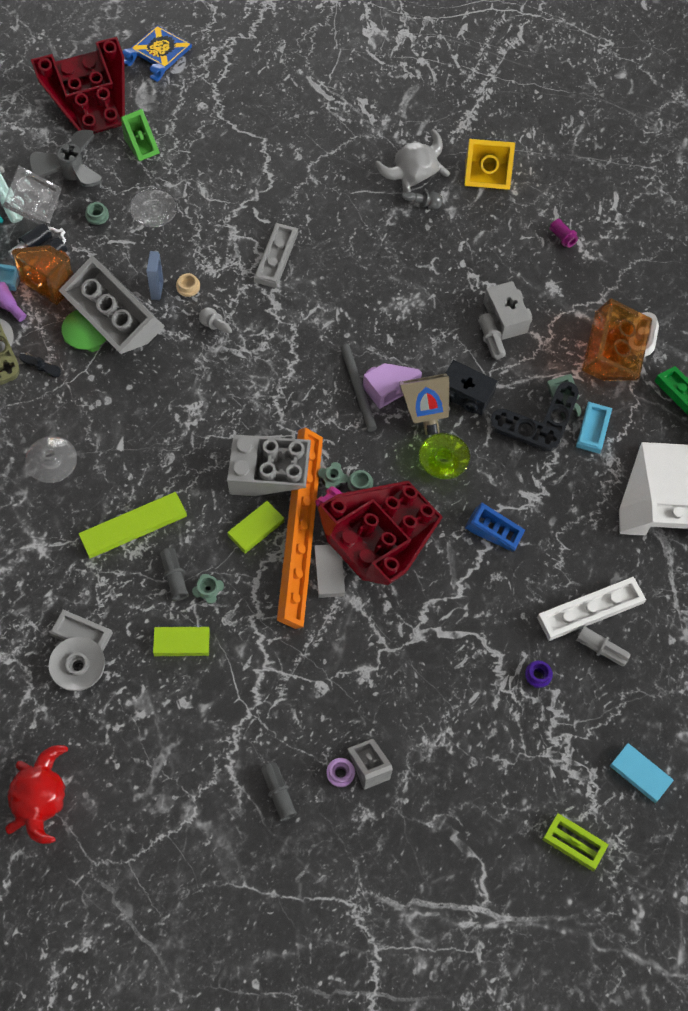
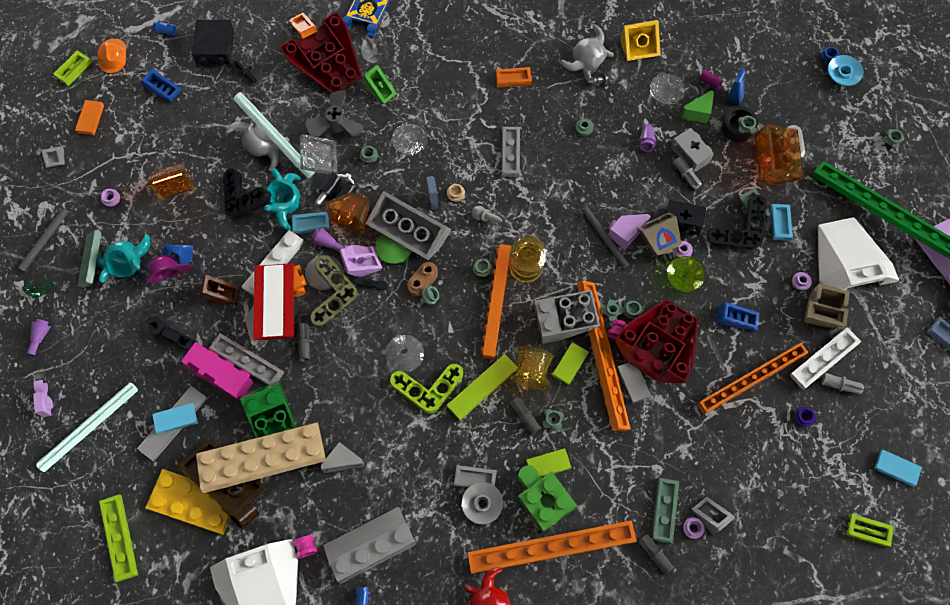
camera: 10 degrees left, 5 degrees up
(36, 333) = (360, 260): none -> lavender slope
(66, 515) = (432, 393): none -> lime beam
(73, 46) = (303, 25): none -> orange tile
(108, 376) = (423, 278): none -> medium nougat plate
(108, 396) = (430, 294): none -> sand green plate
(147, 743) = (552, 547): none -> orange plate
(157, 680) = (544, 498): none -> bright green brick
(187, 382) = (482, 267): none -> sand green plate
(189, 428) = (496, 303): none -> orange piece
(201, 515) = (532, 368): none -> clear yellow hat
(245, 384) = (527, 259): none -> clear yellow hat
(311, 741) = (665, 510): none -> sand green tile
(312, 169) = (513, 77): none -> orange tile
(379, 254) = (584, 131): none -> sand green plate
(452, 420) = (678, 252): none -> lavender plate
(454, 283) = (647, 139): none -> medium lavender cone
(485, 607) = (752, 378): none -> orange piece
(503, 230) = (667, 88): none -> clear dish
(534, 263) = (699, 109): none -> bright green slope
(584, 280) = (732, 133): none -> black tyre
(587, 290) = (747, 120): none -> sand green plate
(592, 250) = (738, 89): none -> blue slope
(594, 512) = (798, 285): none -> lavender plate
(613, 544) = (827, 307): none -> dark tan plate

